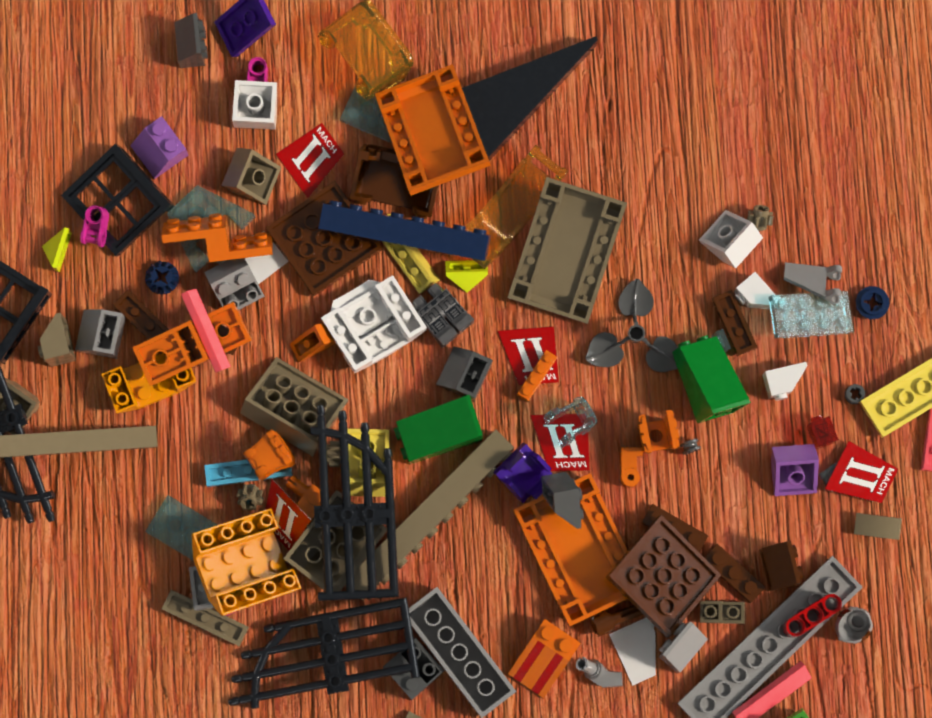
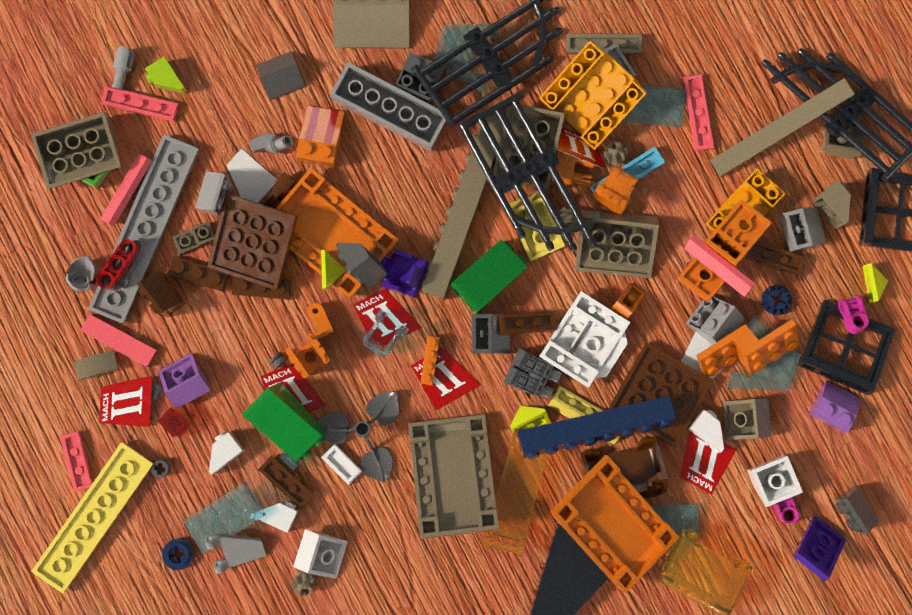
camera: 160 degrees right, 5 degrees up
(143, 501) = (698, 112): none -> coral tile
(294, 184) = (708, 429): none -> white slope
(360, 694) = (450, 38): none -> clear light blue wing
(422, 366) = (527, 323): none -> reddish brown plate
(596, 510) = (330, 270): none -> neon yellow slope
(671, 316) = (341, 464): none -> white tile
(678, 402) = (297, 386): none -> red sticker
(844, 542) = (118, 340): none -> coral tile

